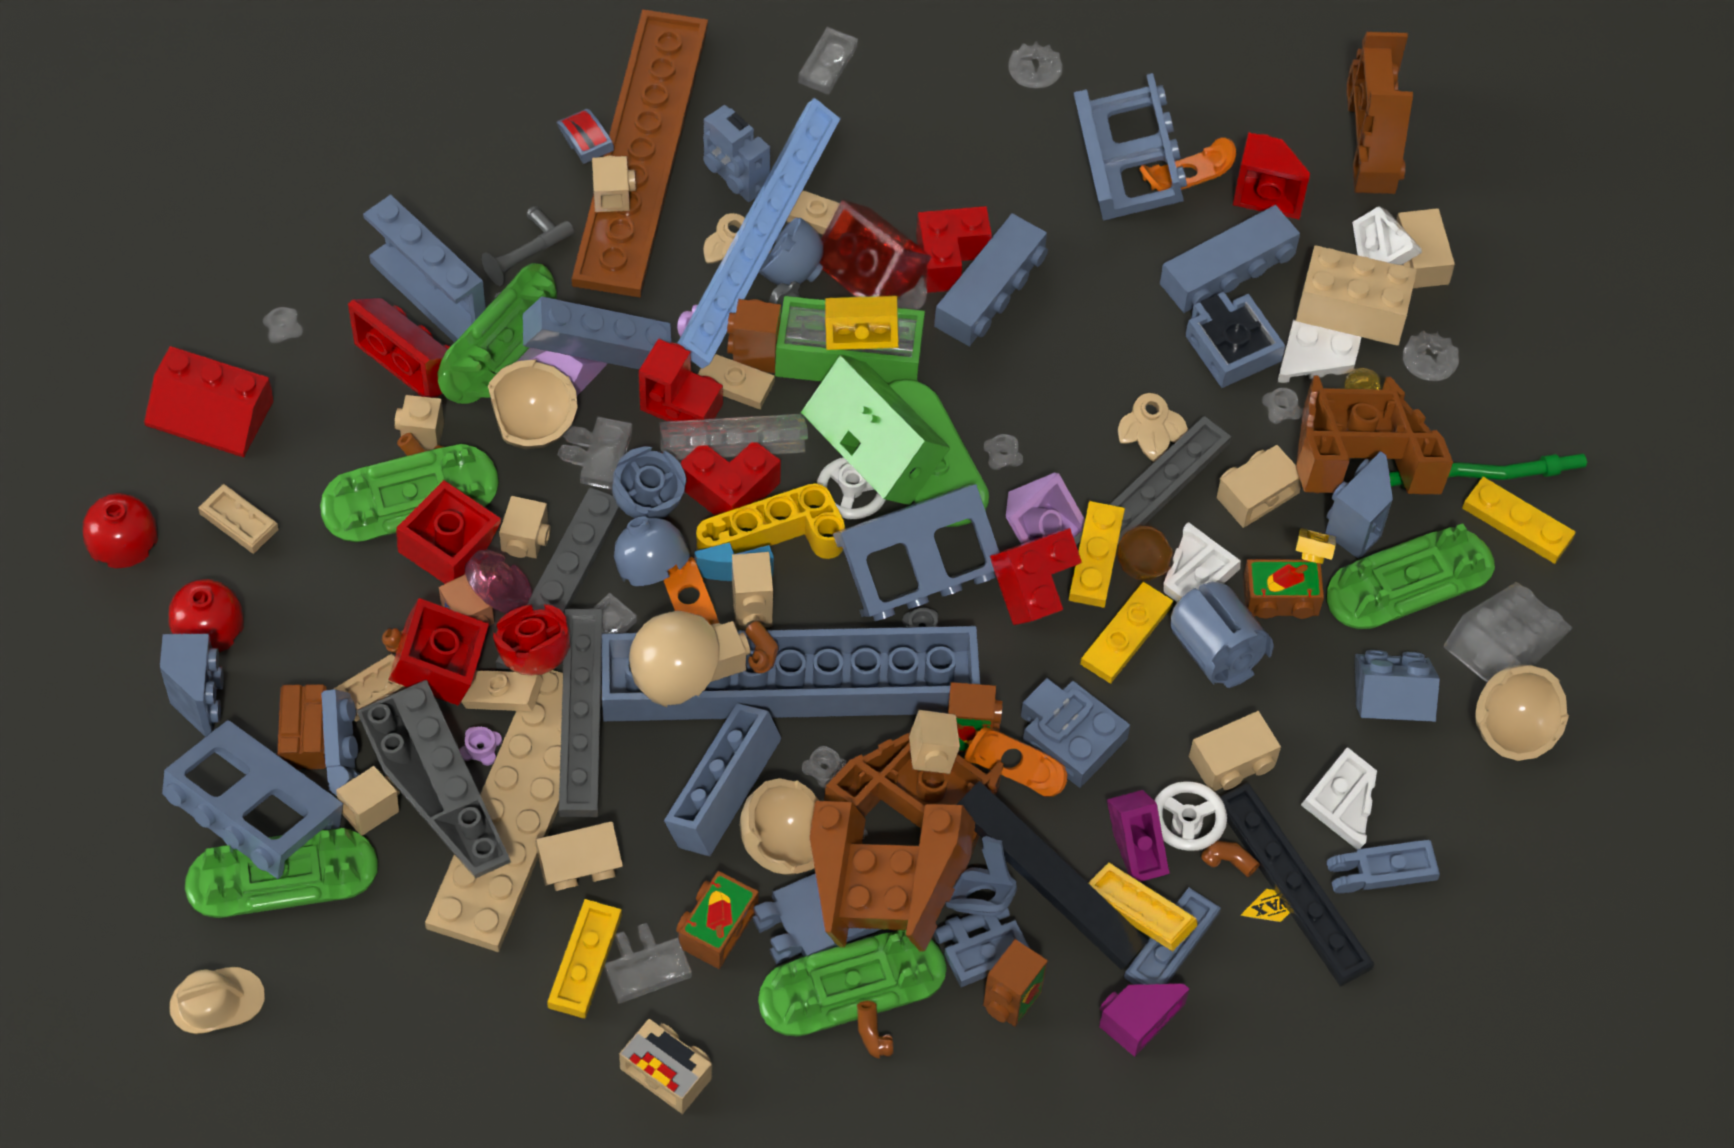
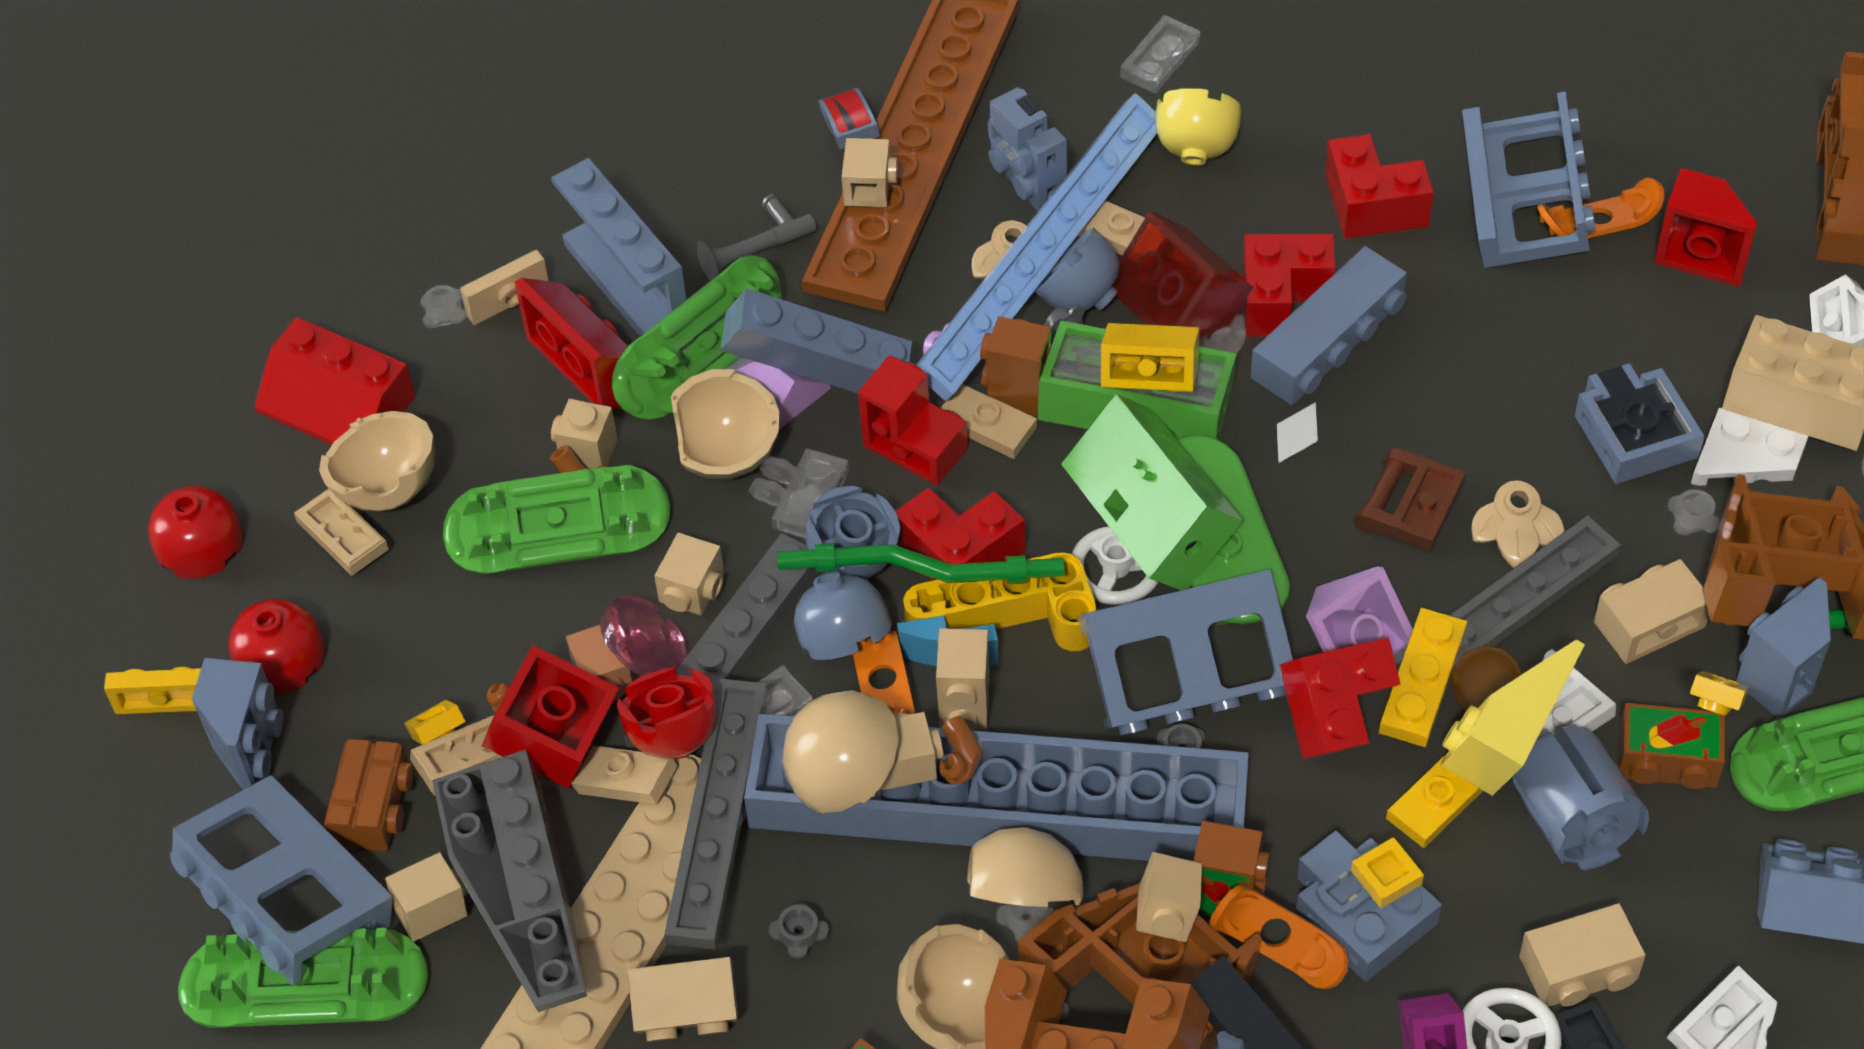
camera: 15 degrees right, 5 degrees down
(121, 661) = (151, 691): none -> yellow plate
(262, 459) = (380, 461): none -> tan cylinder
(330, 304) = (497, 289): none -> tan plate
(338, 738) = (404, 810): sand blue hinge -> none
(345, 664) = (435, 722): none -> yellow plate
(446, 532) = (588, 568): red slope -> none
(484, 736) = (583, 830): lavender plate -> none
(635, 506) = (1013, 570): none -> green bar
(658, 785) = (794, 917): none -> dark grey plate
(723, 779) = (886, 919): sand blue brick -> none
(731, 435) = (962, 485): clear fence -> none
(820, 732) = (1023, 869): none -> tan cylinder
(866, 122) = (1197, 125): none -> light yellow cylinder
(976, 368) = (1297, 432): none -> white sticker
(1003, 443) = (1317, 527): clear plate -> none
(1009, 169) = (1373, 196): none -> red brick
(1023, 71) = (1404, 86): clear gear -> none
(1080, 417) = (1423, 505): none -> copper plate
(1089, 706) = (1387, 872): none -> yellow plate
(1163, 591) = (1500, 734): none -> light yellow slope
(1230, 258) = (1643, 324): sand blue brick -> none
(1362, 379) = (1805, 486): clear yellow plate -> none

